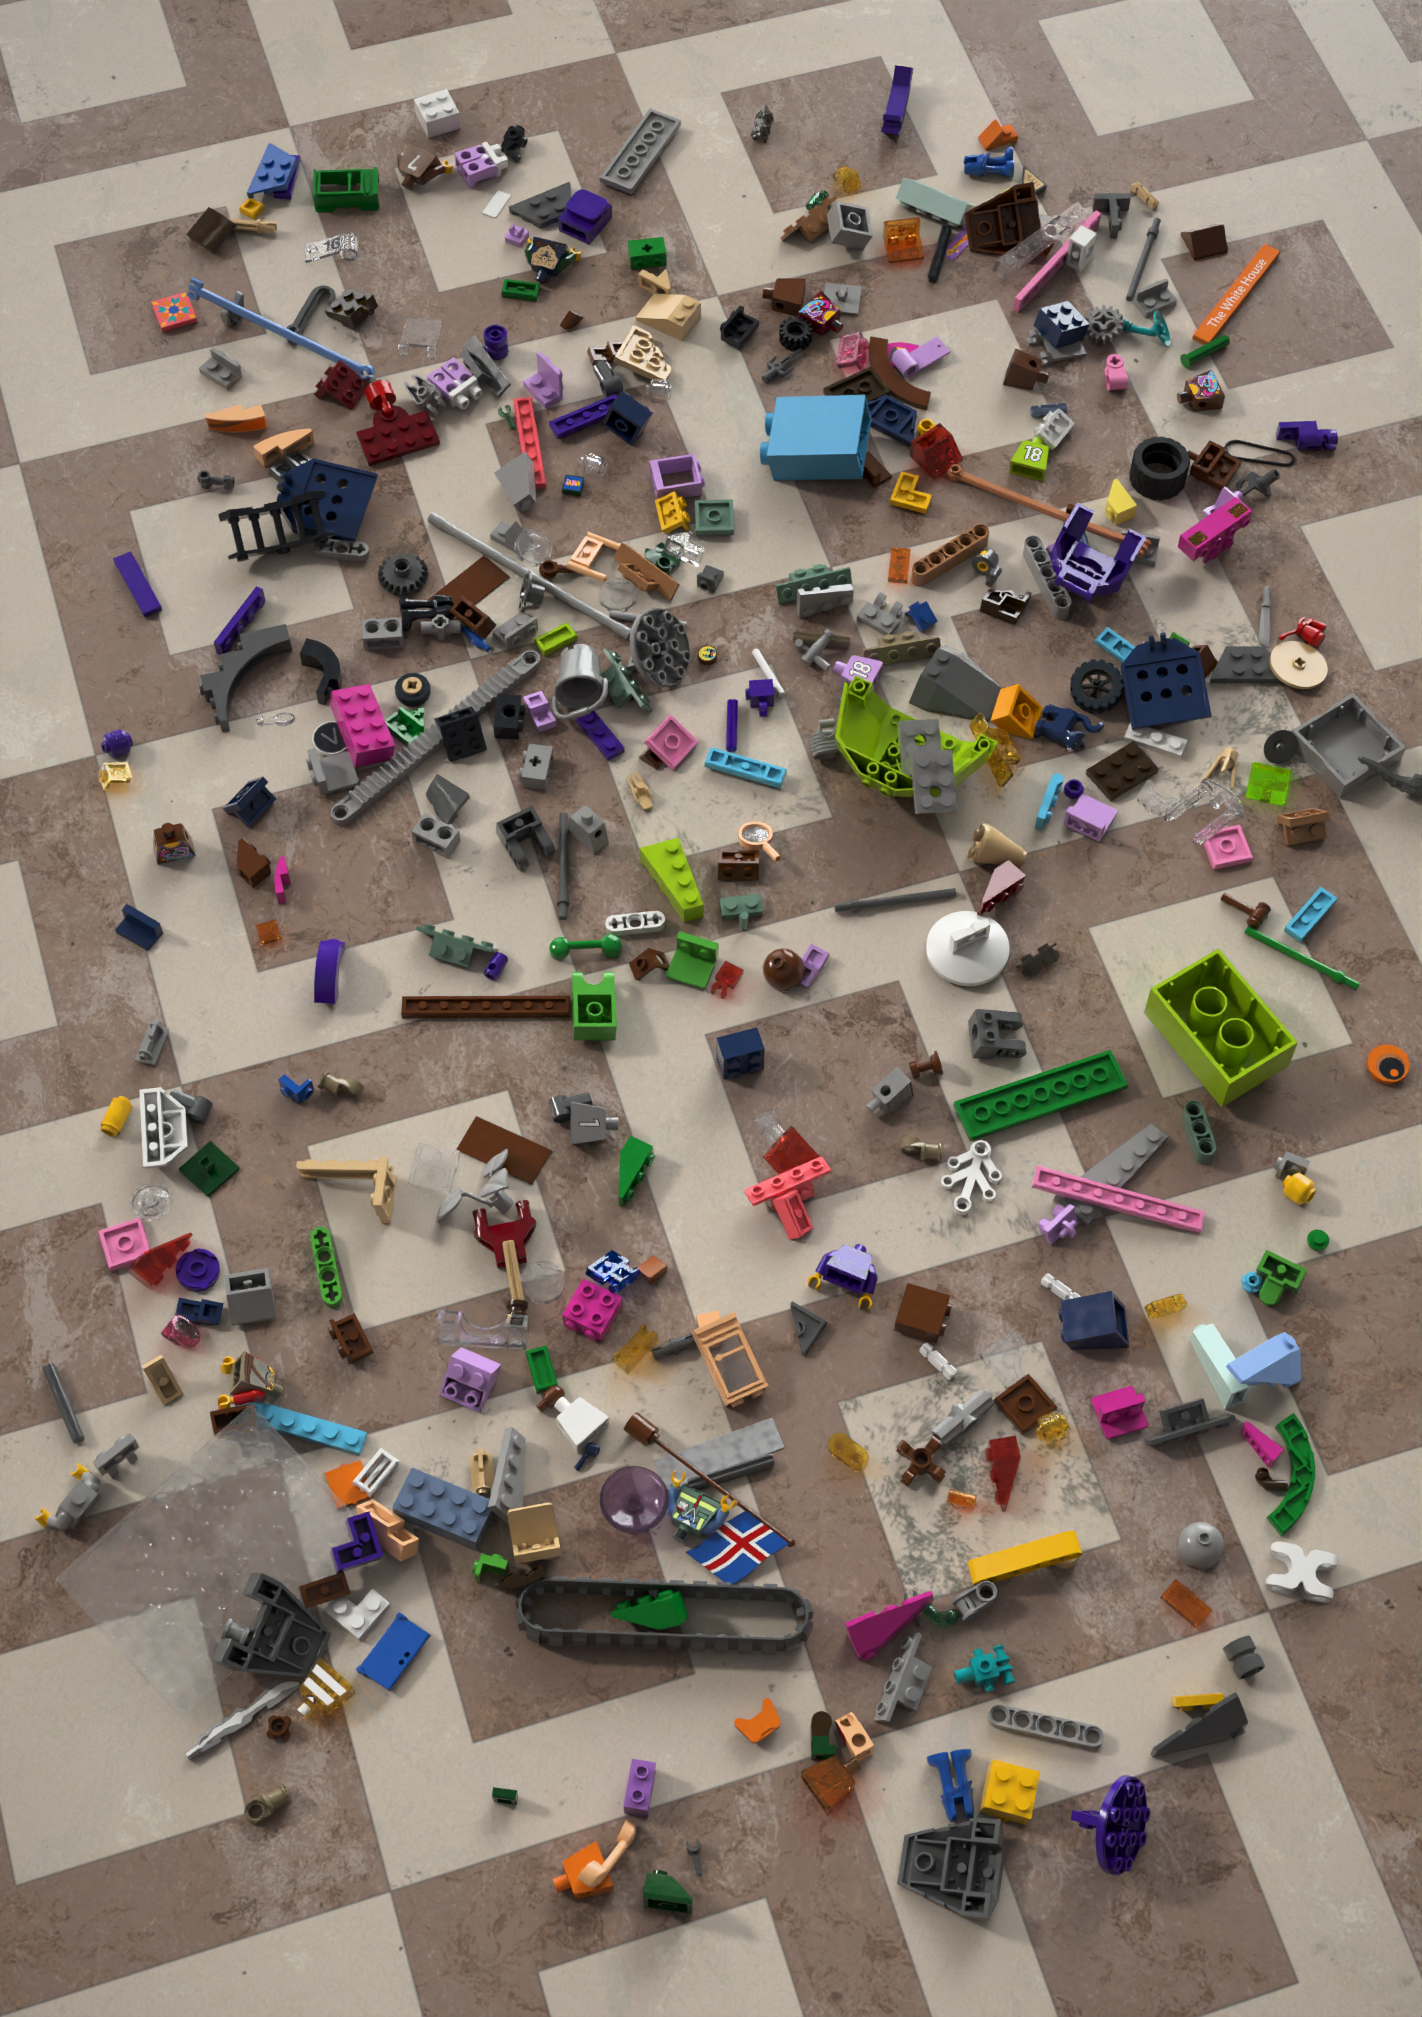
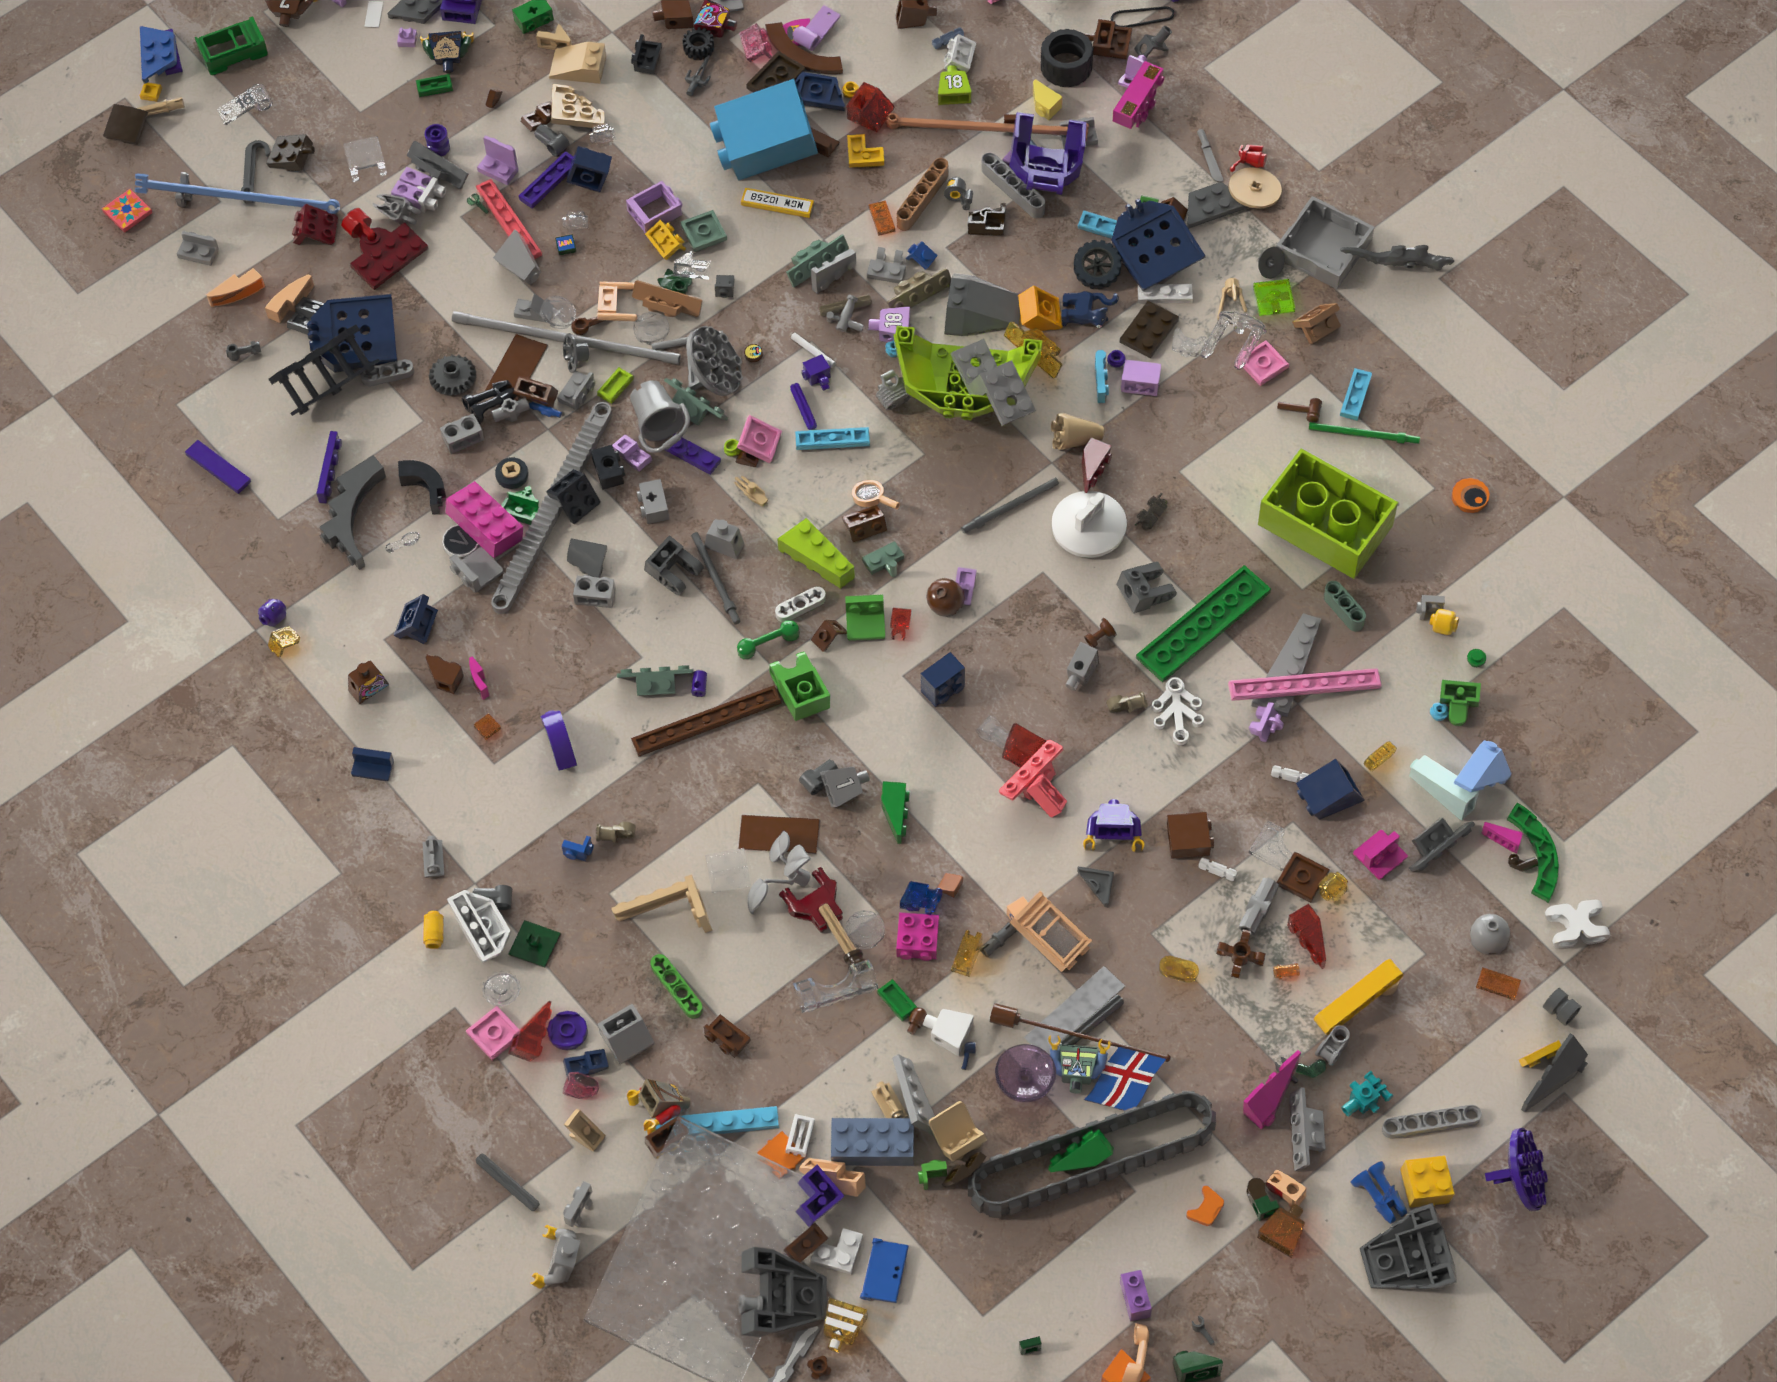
camera: 20 degrees left, 0 degrees up
(469, 1379) = (842, 1030): lavender slope -> none
(638, 741) = (730, 447): none -> lime plate
(801, 514) = (777, 202): none -> tile

